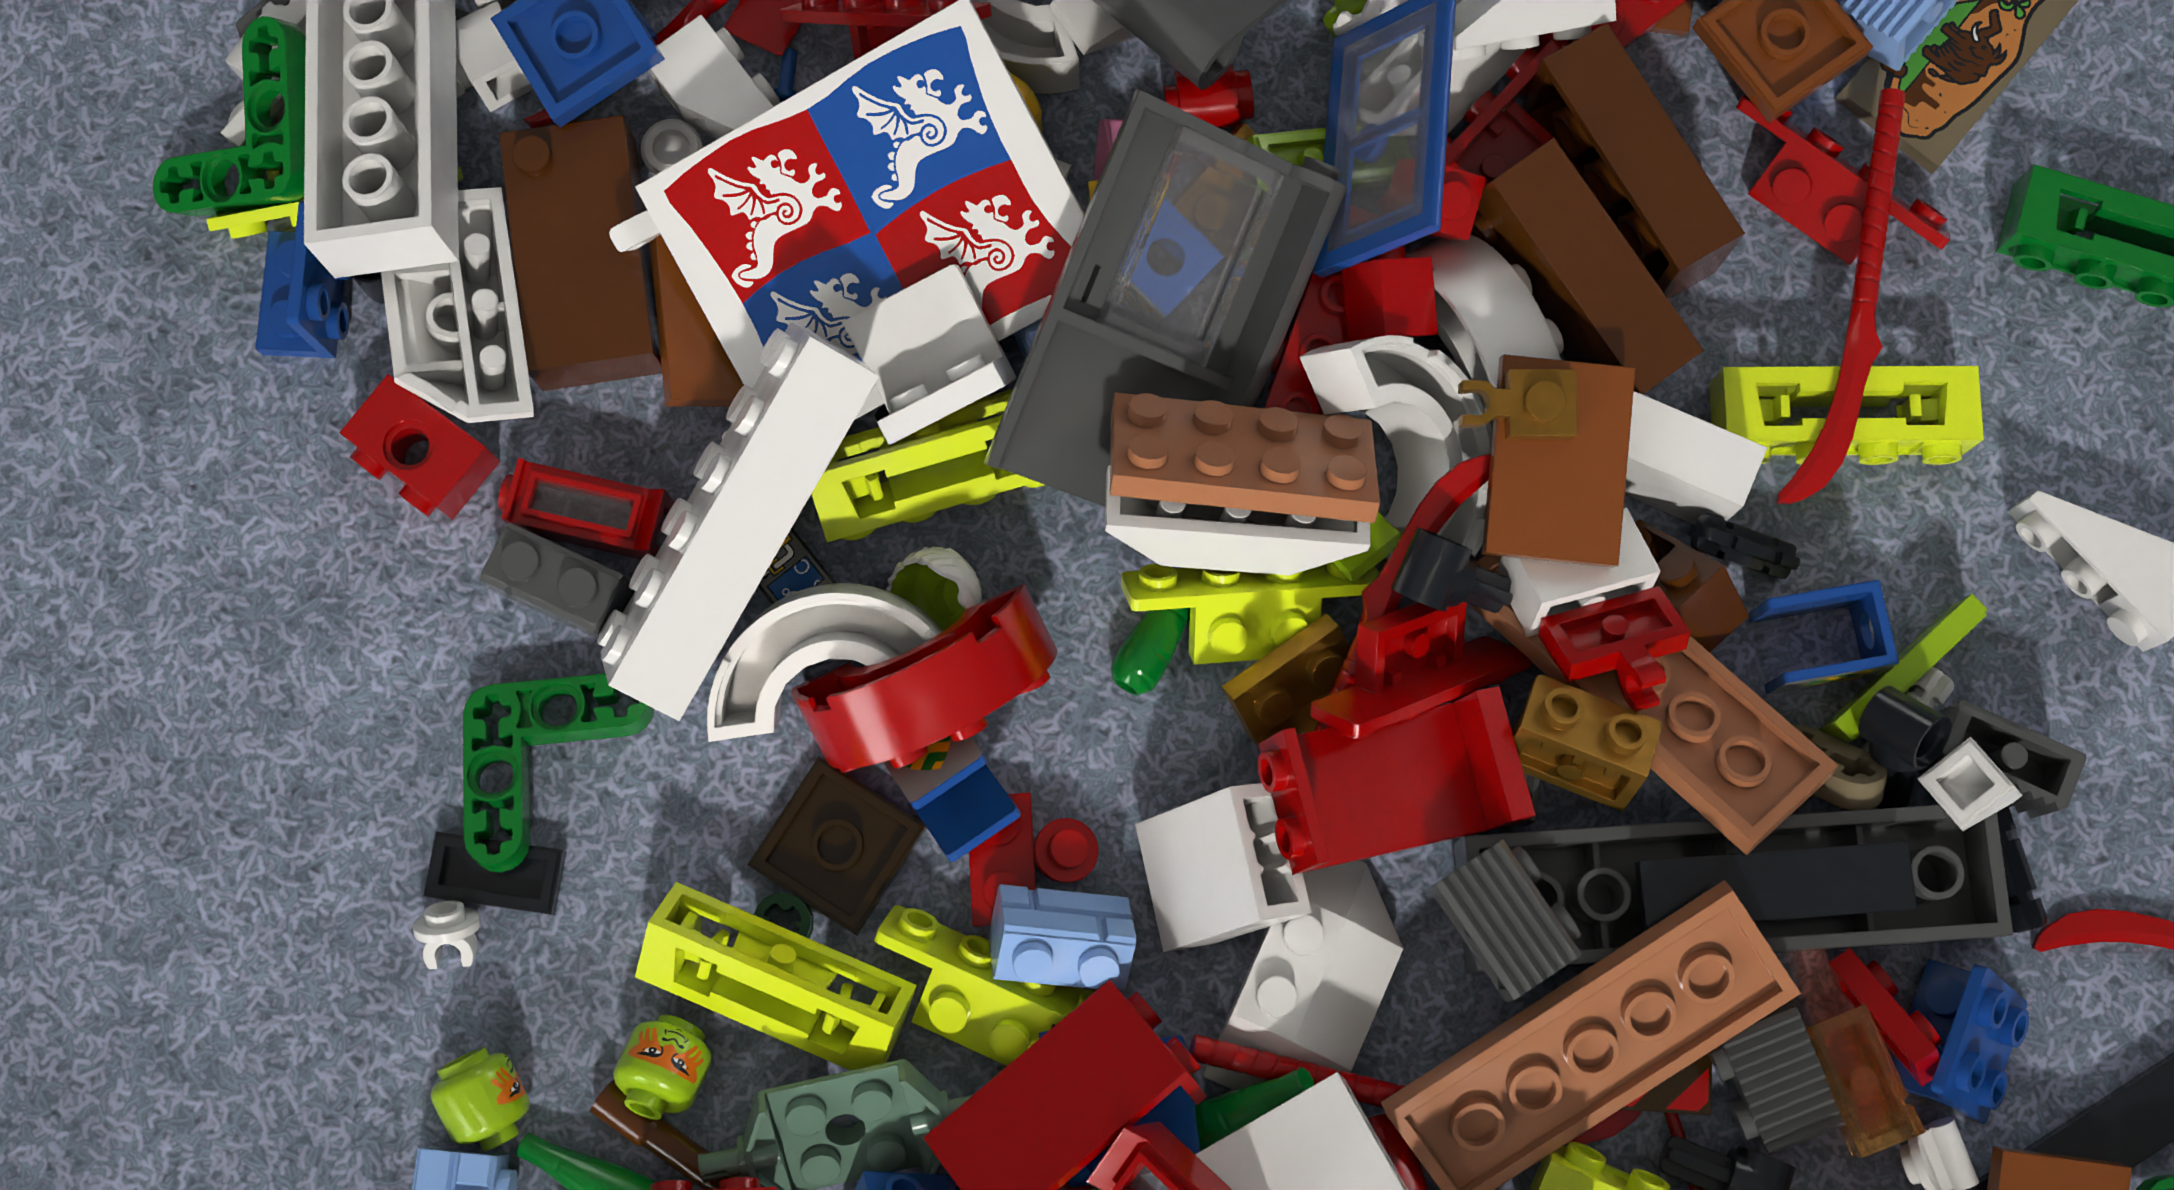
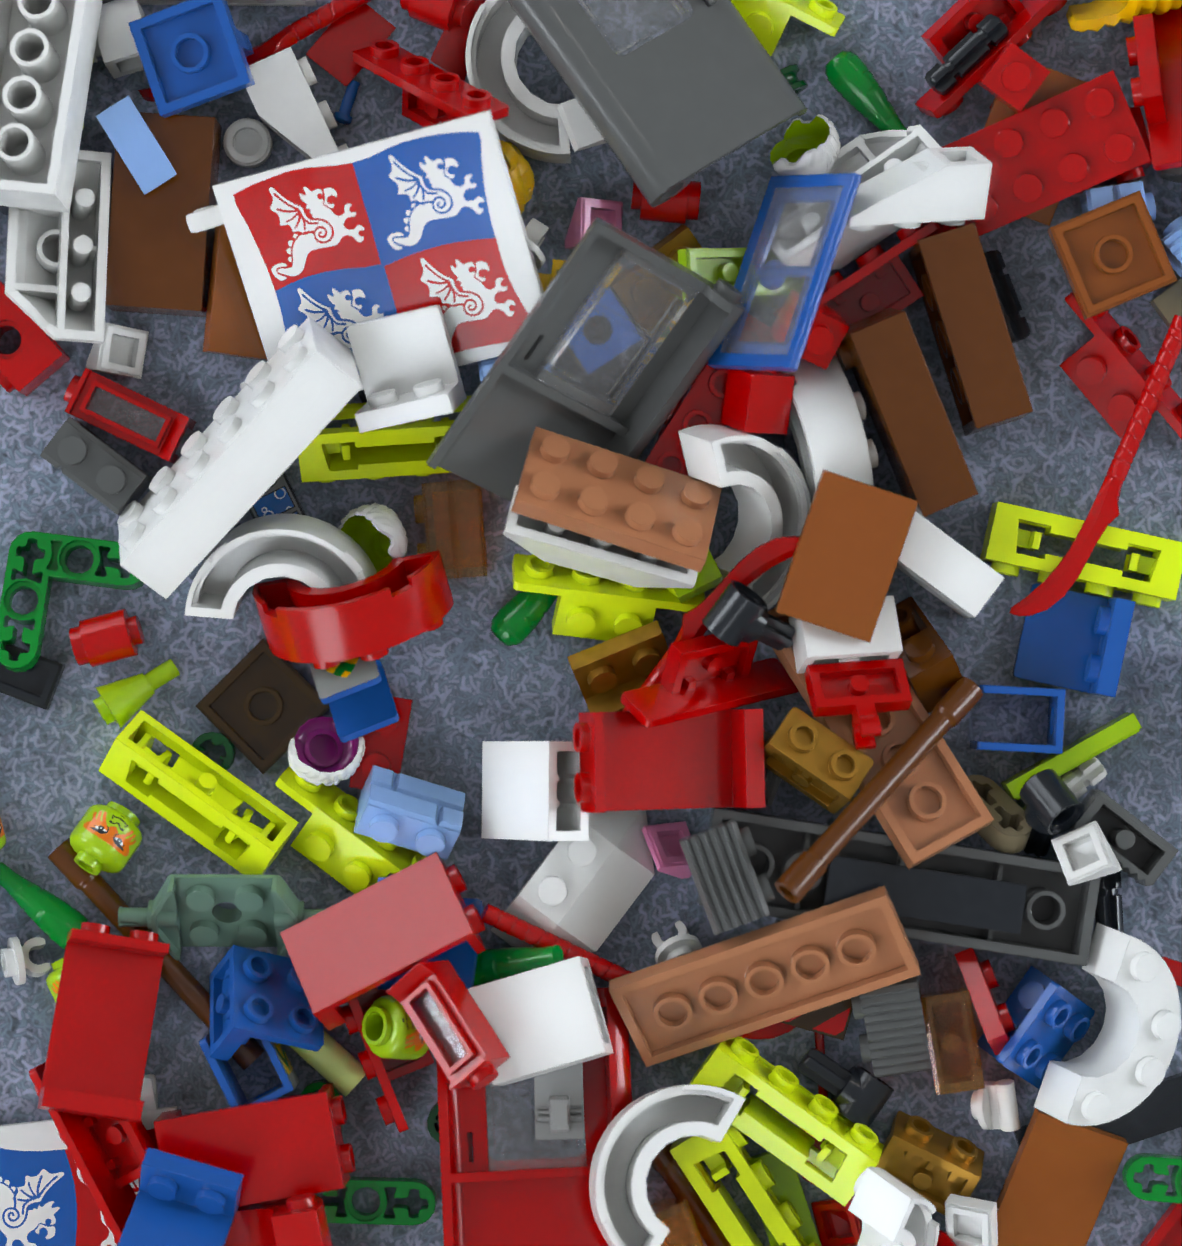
camera: 15 degrees right, 10 degrees up
(529, 165) = (136, 145): none -> light blue sticker
(560, 435) = (120, 353): none -> white slope
(612, 801) = (106, 638): none -> red brick
(651, 874) = (124, 697): none -> lime cone
(927, 887) = (320, 755): none -> magenta hair
(1036, 548) = (454, 526): none -> clear orange brick
(1065, 850) = (428, 748): red plate -> none
(1415, 911) = (666, 848): none -> bright pink slope
(1454, 1037) = (676, 945): none -> white plate
(1534, 404) = (835, 513): pearl gold plate -> none
(1626, 864) = (813, 862): none -> reddish brown piece
(1743, 546) = (978, 638): black axle -> none
(1873, 526) = (1076, 643): none -> blue bracket
(2097, 1025) = (1133, 1043): none -> white brick

